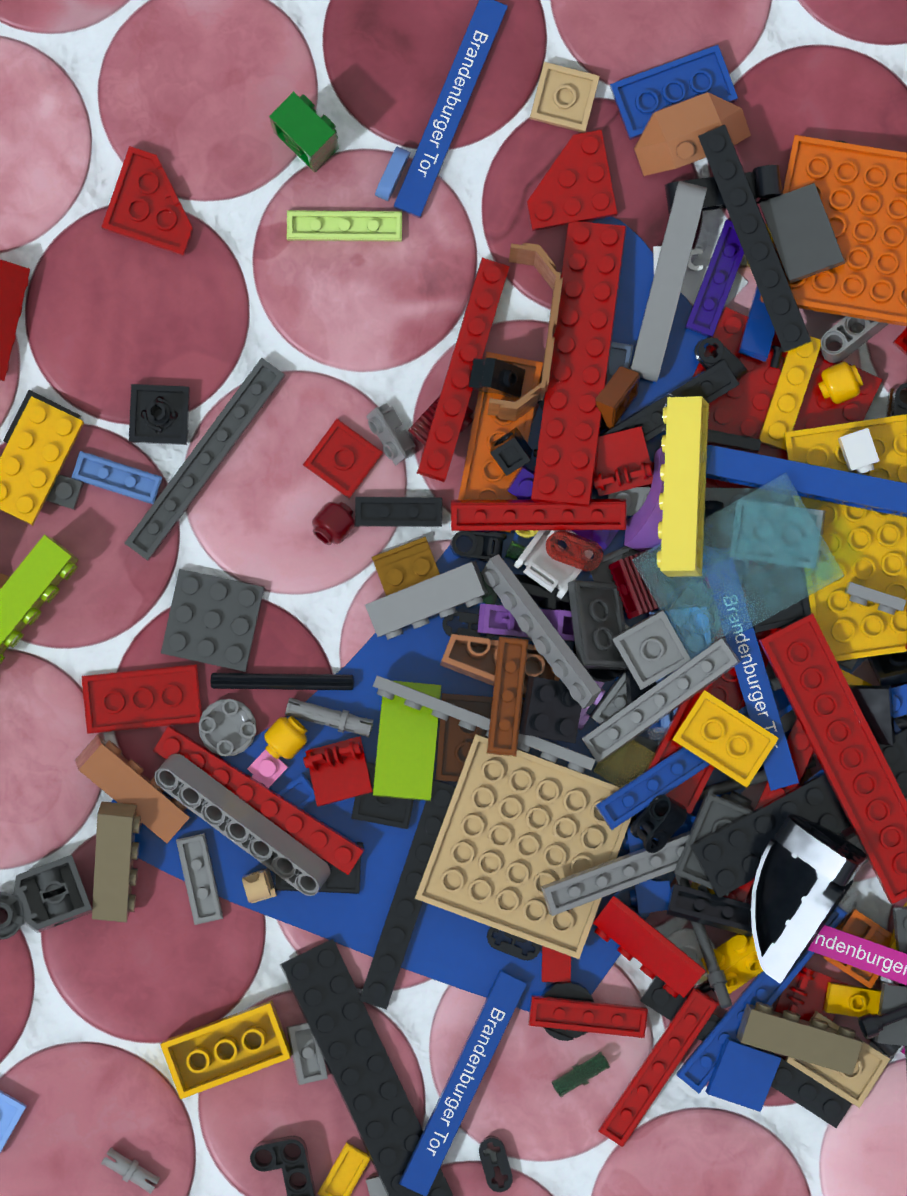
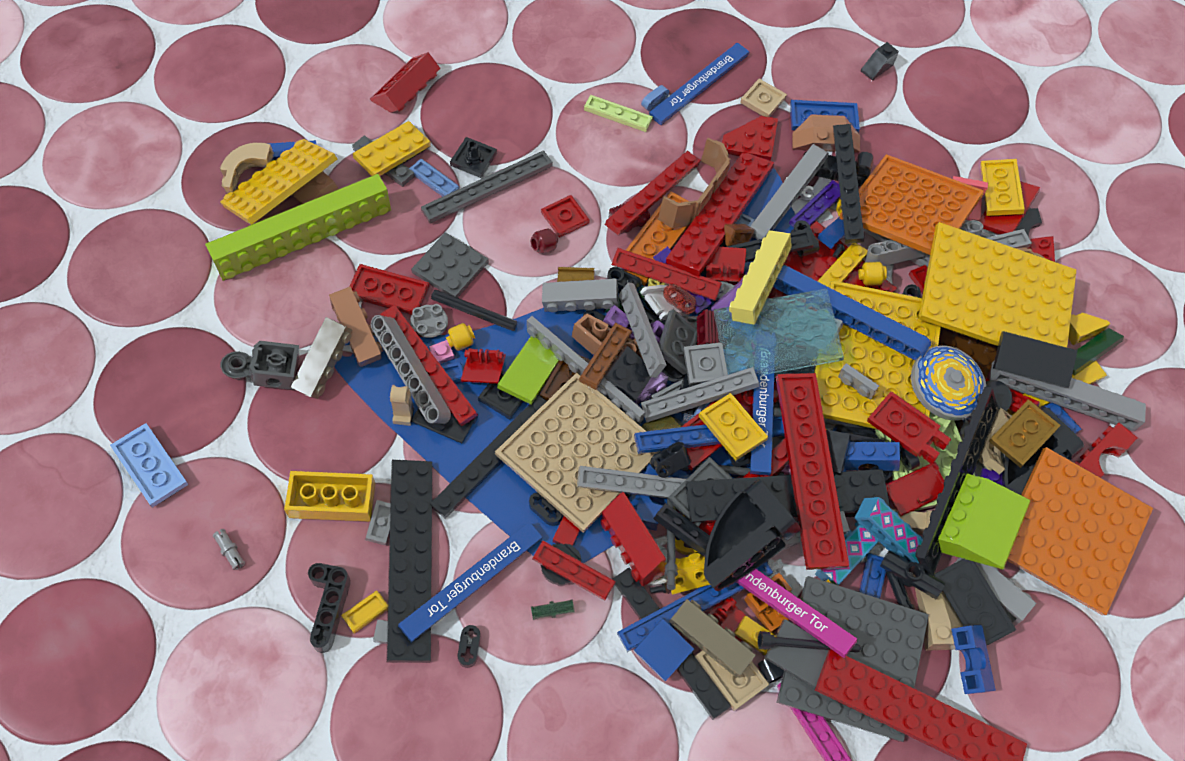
camera: 15 degrees right, 25 degrees down
(147, 205) = (516, 67): red plate -> none
(199, 879) = (368, 396): light grey tile -> none
(304, 131) = (617, 54): green brick -> none
(336, 719) = (497, 341): light grey pin -> none
(395, 445) = (597, 209): light grey hinge -> none
(398, 512) = (584, 250): black plate -> none
(497, 377) = (671, 190): black brick -> none
(511, 451) = (664, 235): black brick -> none
(658, 1066) = (606, 624): red tile -> none
(802, 233) = (876, 191): dark grey tile -> none
(859, 451) = (875, 297): white brick -> none

